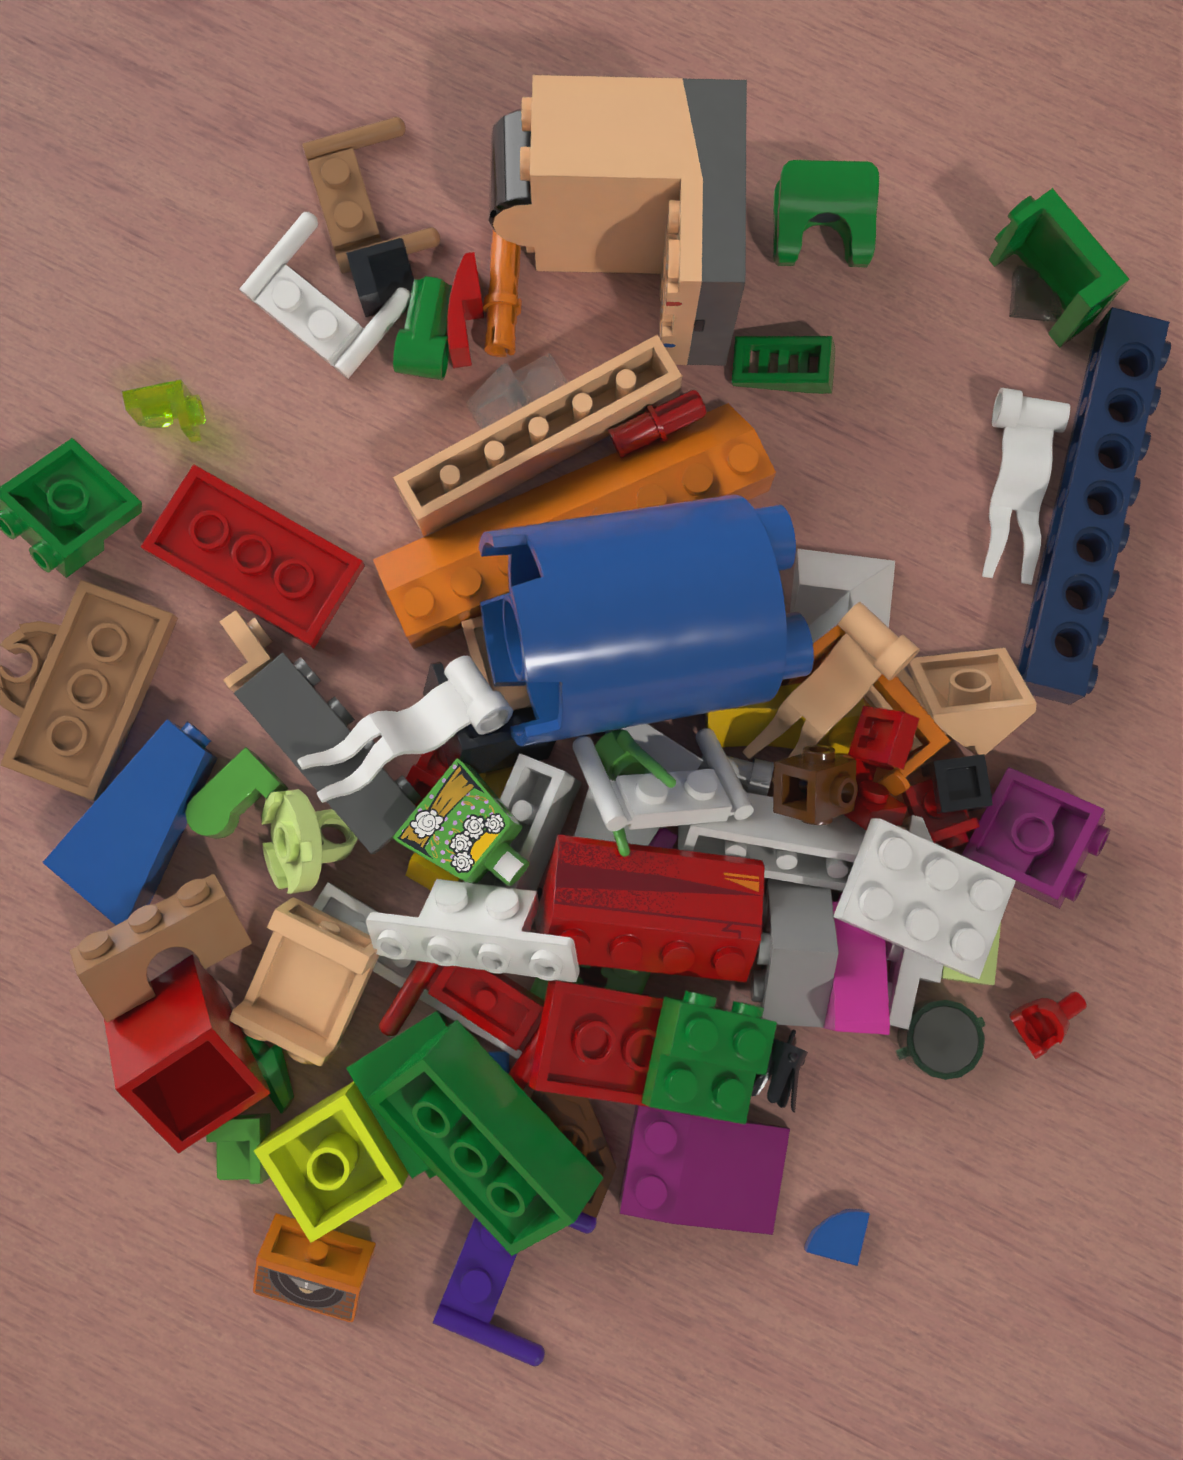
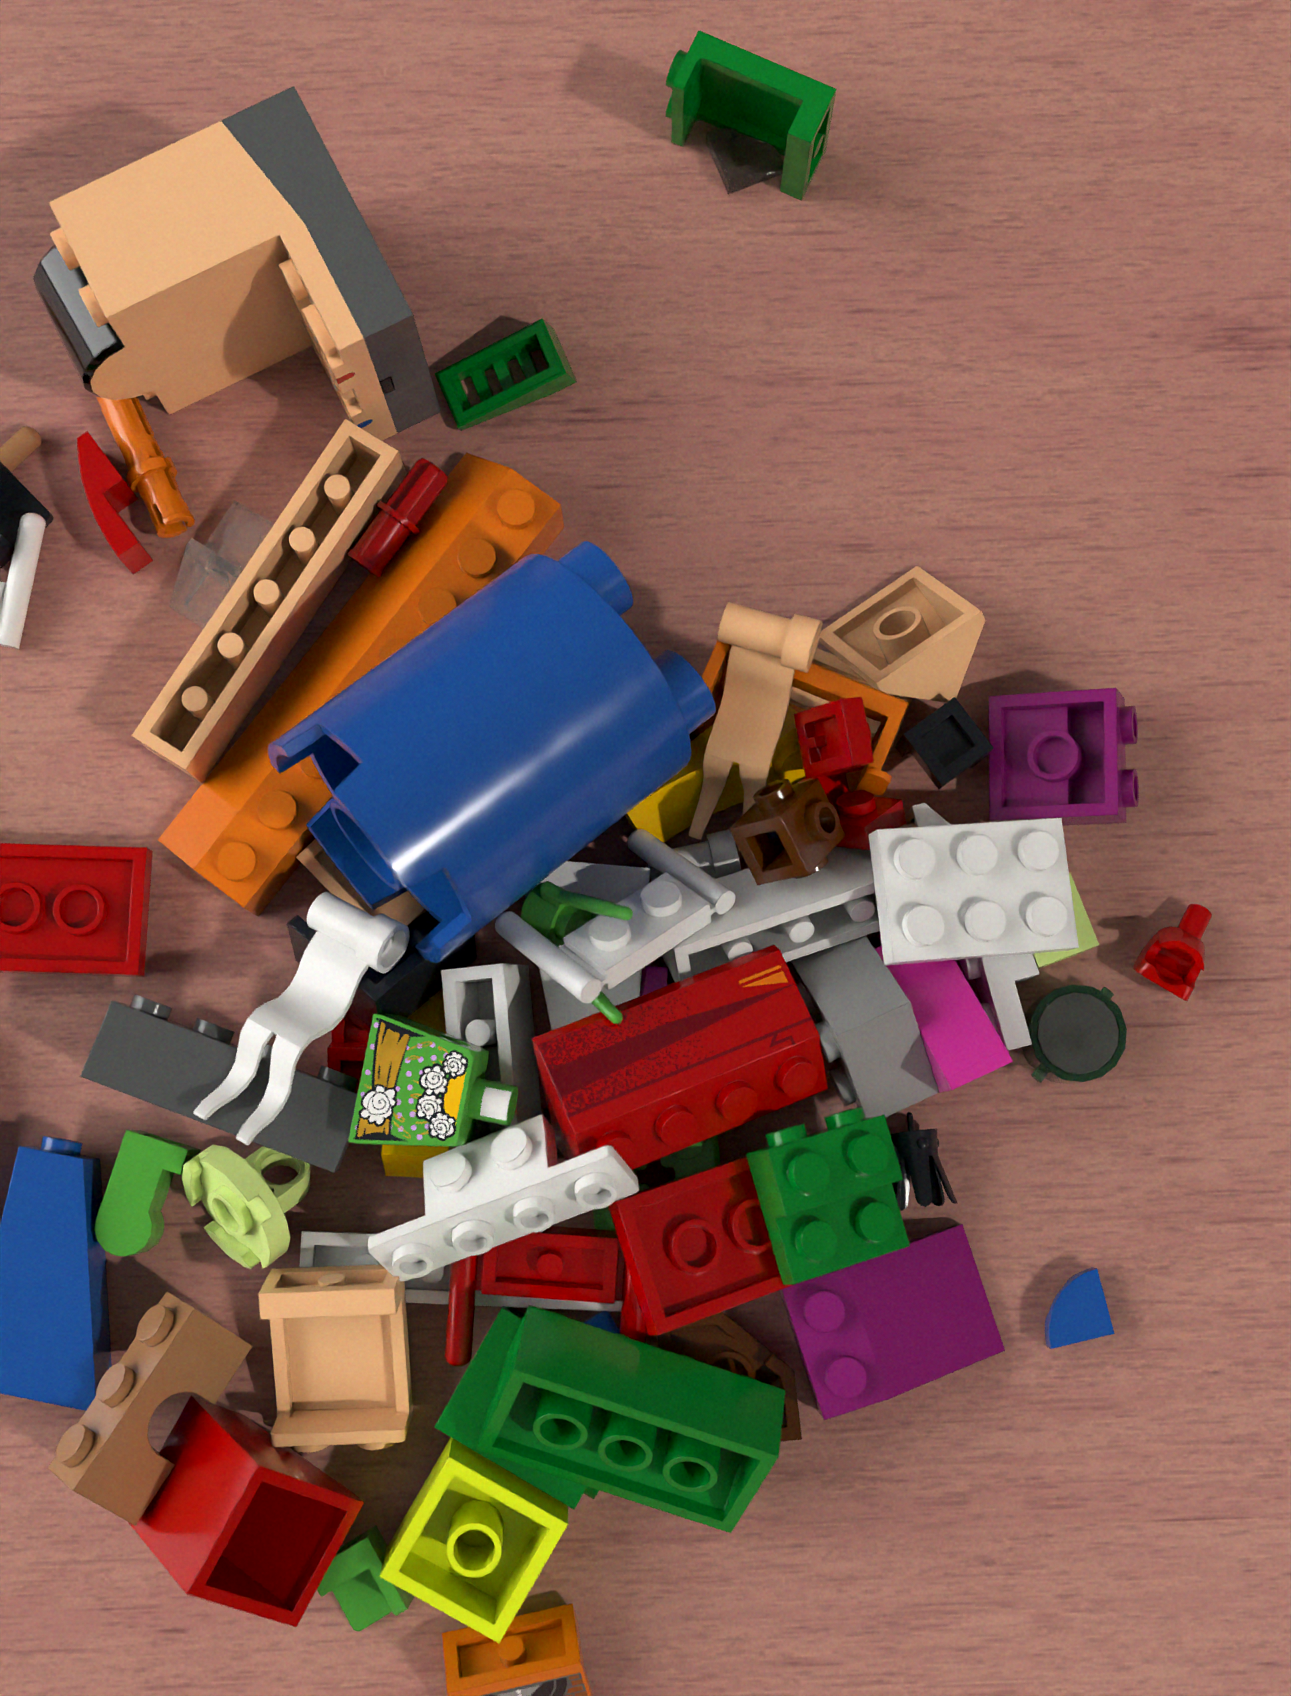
camera: 25 degrees left, 0 degrees up
(252, 642) = (70, 1007): light nougat bracket -> none
(275, 1072) = (355, 1475): green bar -> none
(423, 344) = (83, 563): green piece -> none
(477, 1289) = (712, 1591): dark purple plate -> none
(827, 195) = (455, 161): green piece -> none
(832, 583) = (691, 592): white slope -> none
(944, 828) = (956, 801): red bracket -> none
(1023, 472) = (834, 361): white flag -> none
(1143, 347) = (889, 153): dark blue brick -> none

